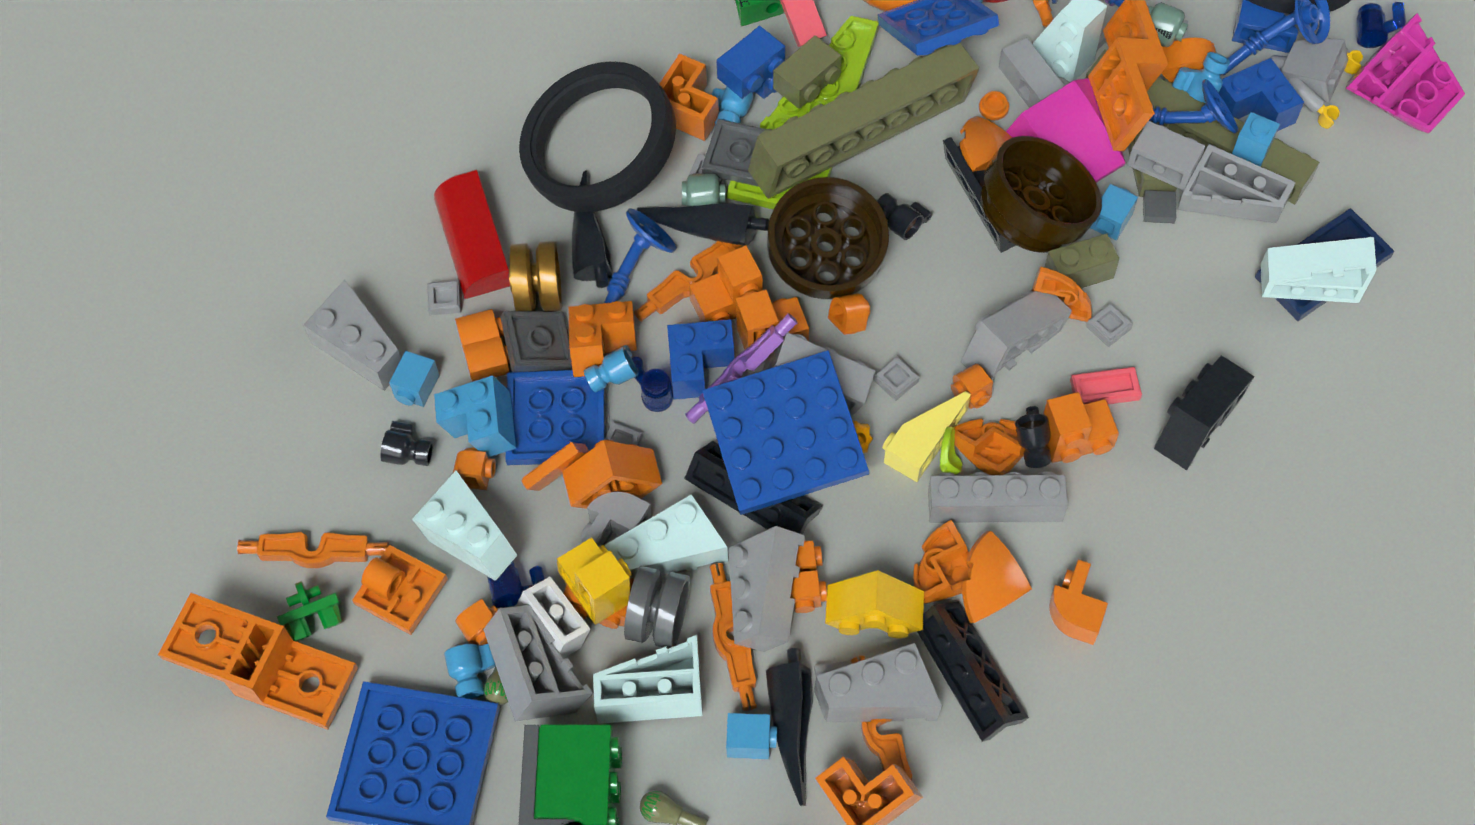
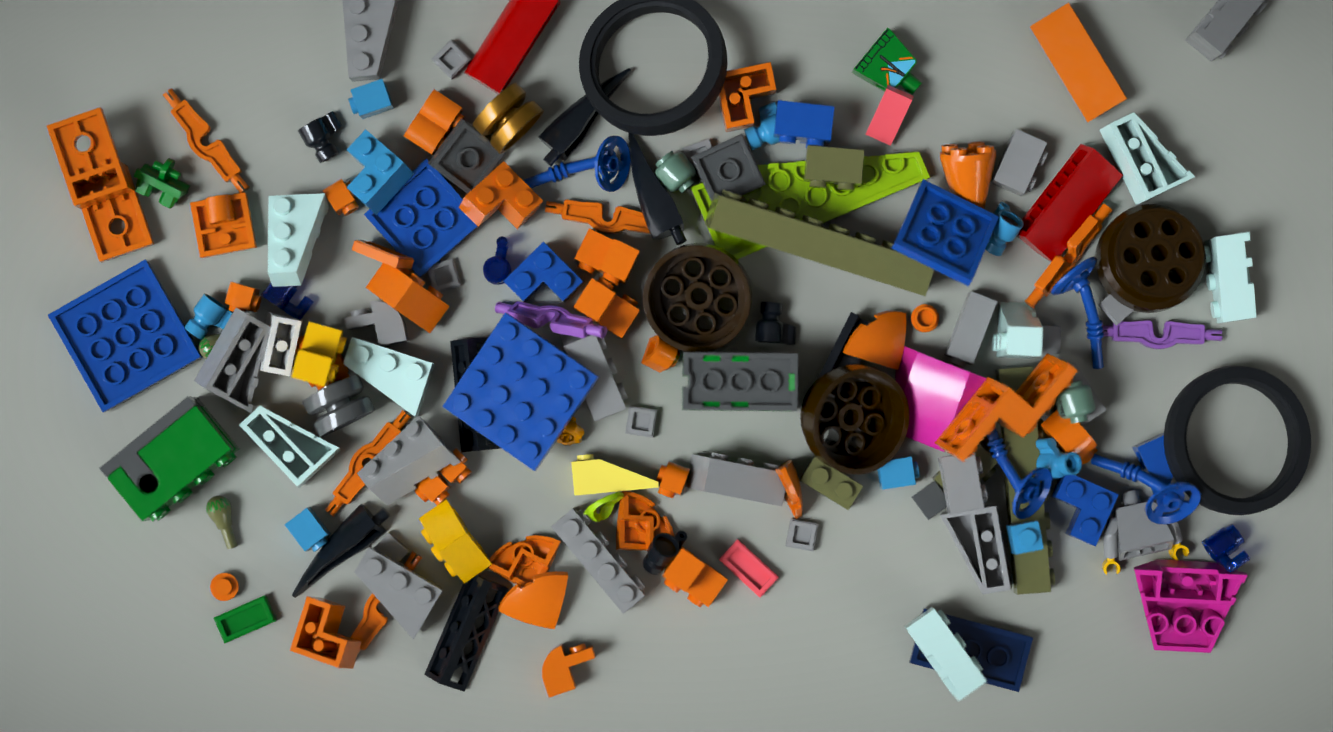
camera: 45 degrees right, 25 degrees up
(615, 368) = (482, 235): dark azure piece -> none
(931, 258) = (740, 381): none -> dark grey piece
(1202, 410) = (778, 649): black wedge -> none

